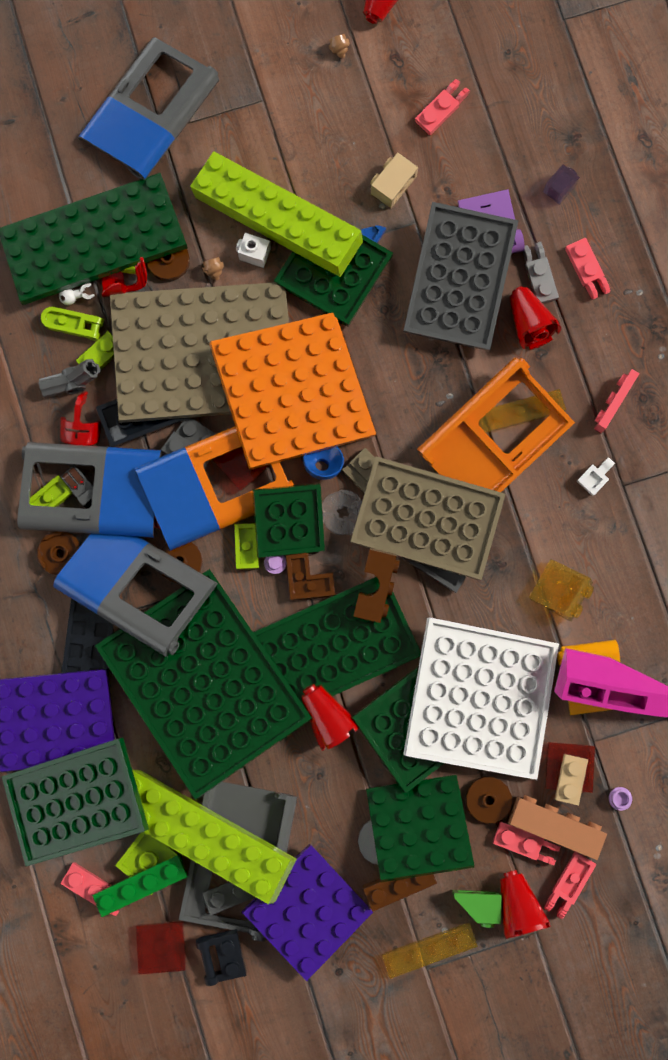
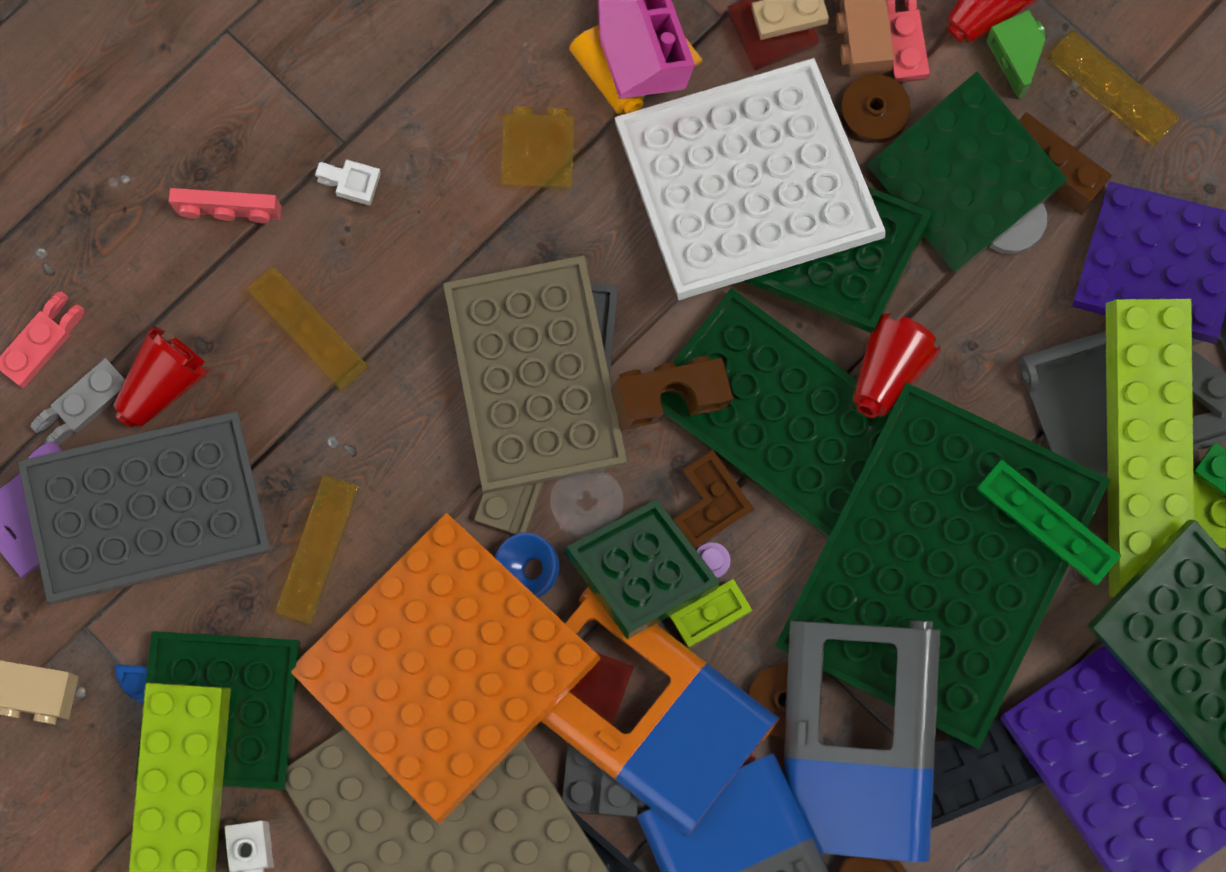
camera: 115 degrees left, 5 degrees down
(189, 749) = (1048, 523): none -> green plate
(392, 358) = (317, 550): none -> clear yellow plate
(468, 454) = (410, 366): orange piece -> none

